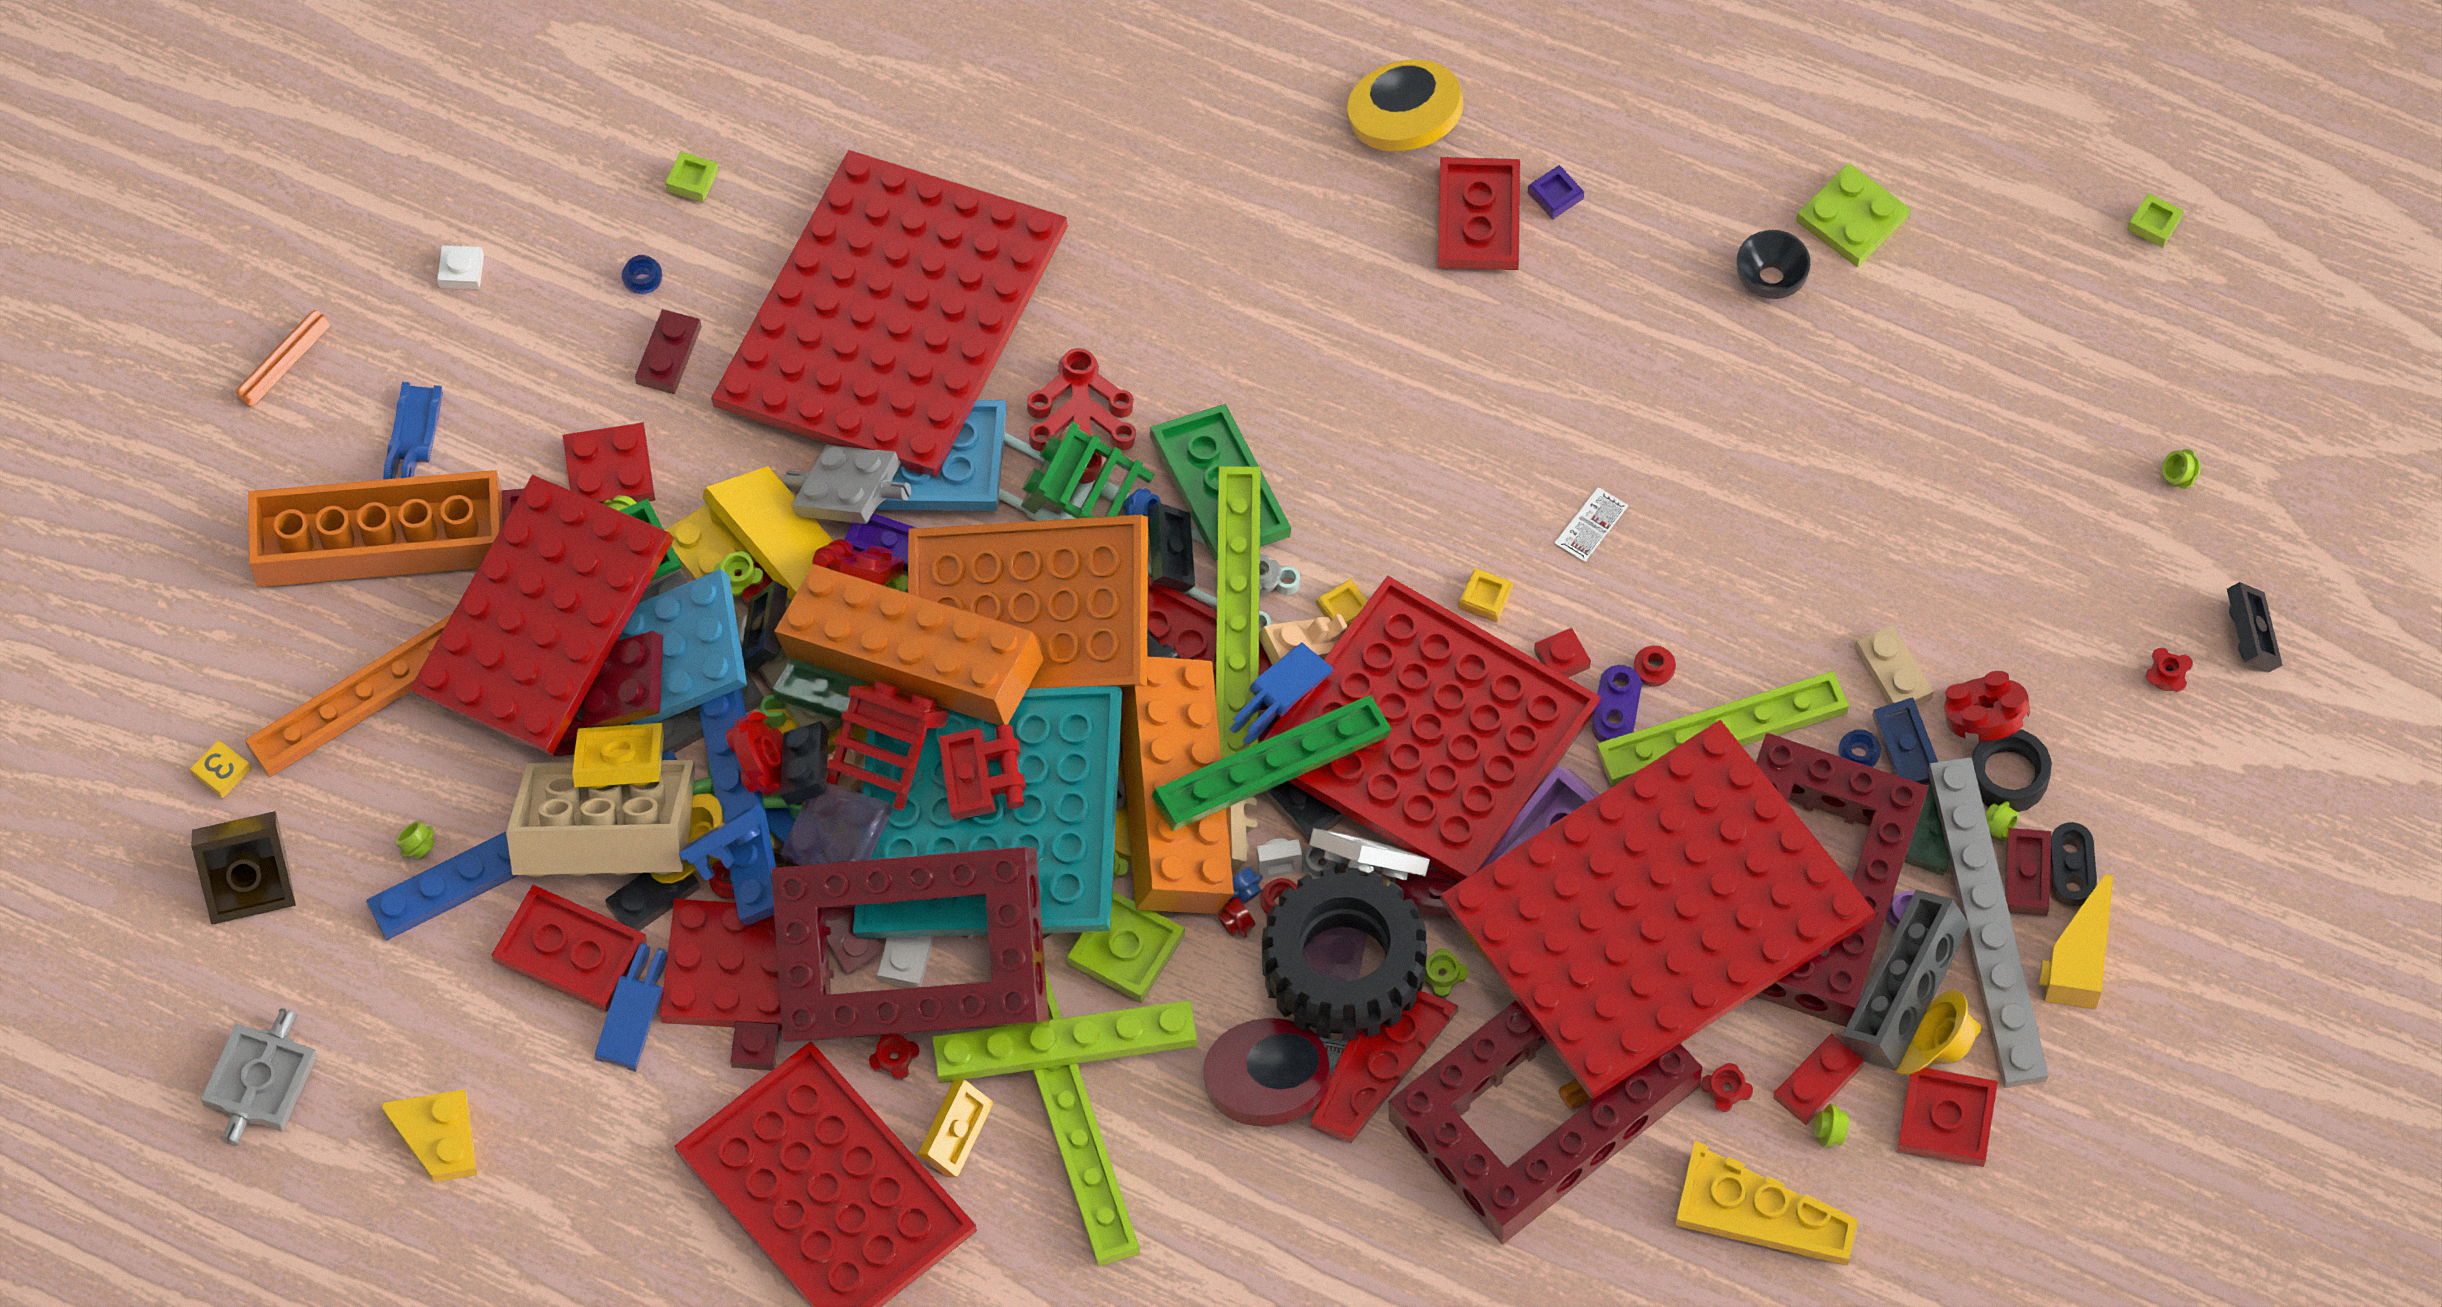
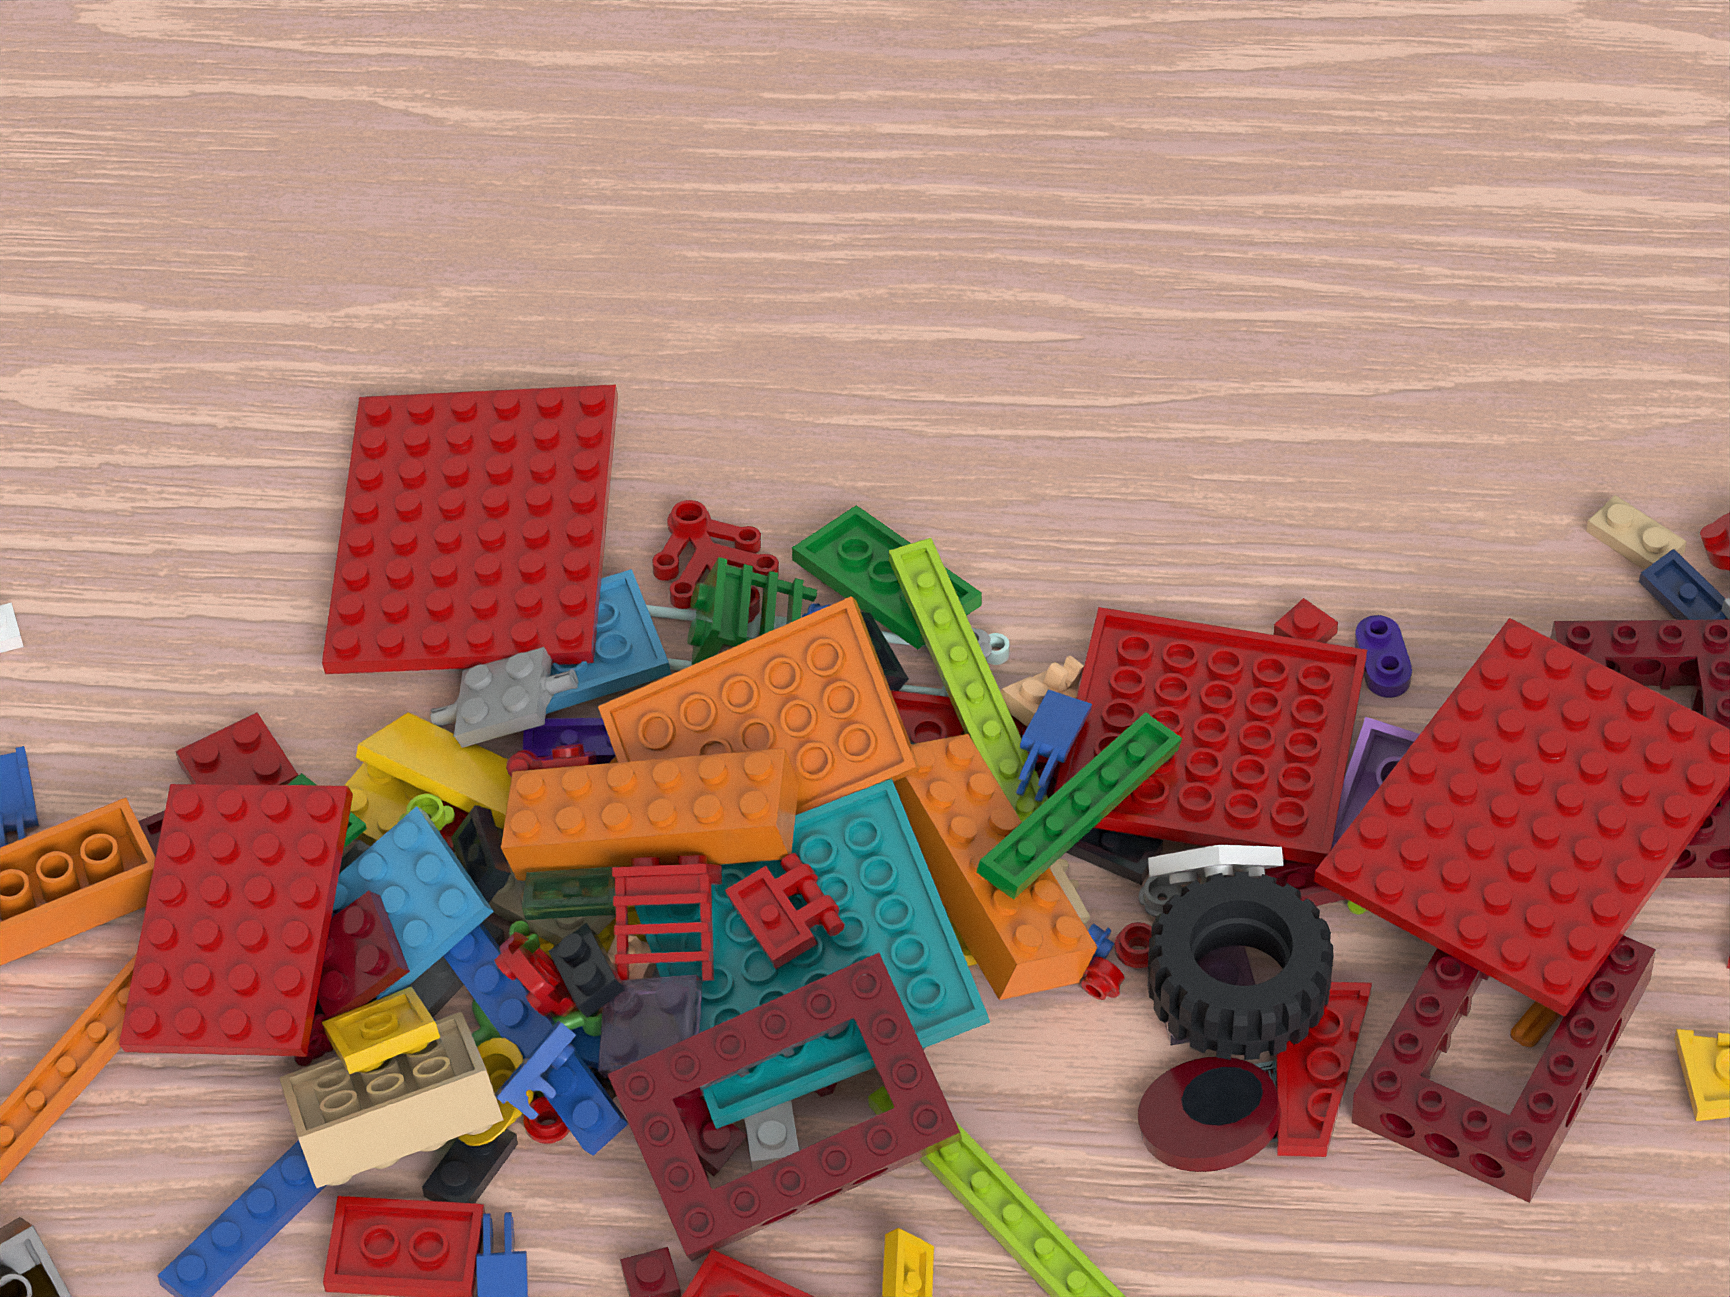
camera: 20 degrees left, 10 degrees down
(415, 840) = (187, 1196): lime plate -> none
(642, 265) = (193, 567): clear blue plate -> none
(668, 351) = (252, 640): dark red plate -> none
(691, 176) = (206, 470): lime plate -> none
(720, 967) = (584, 1209): red plate -> none
(894, 1044) = (805, 1223): red plate -> none
(1065, 1041) = (984, 1155): lime plate -> none
(1131, 952) = (1007, 1051): lime plate -> none
(1279, 858) = (1119, 905): white plate -> none
(1342, 600) = (1060, 646): yellow tile -> none
(1405, 105) = (905, 188): yellow piece -> none
(1455, 972) = (1349, 955): lime plate -> none
(1479, 213) = (1023, 261): red plate -> none
(1485, 595) = (1201, 598): yellow tile -> none
(1555, 192) = (1087, 222): dark purple tile -> none
(1591, 524) = (1271, 503): white sticker -> none
(1650, 675) = (1407, 615): red plate -> none
(1730, 1075) = (1679, 959): red plate -> none
(1747, 719) = (1553, 599): lime plate -> none
(1774, 250) = (1335, 206): black piece -> none
(1853, 215) = (1383, 155): lime plate -> none
(1860, 739) = (1642, 608): clear blue plate -> none
(2155, 220) = (1671, 72): lime plate -> none

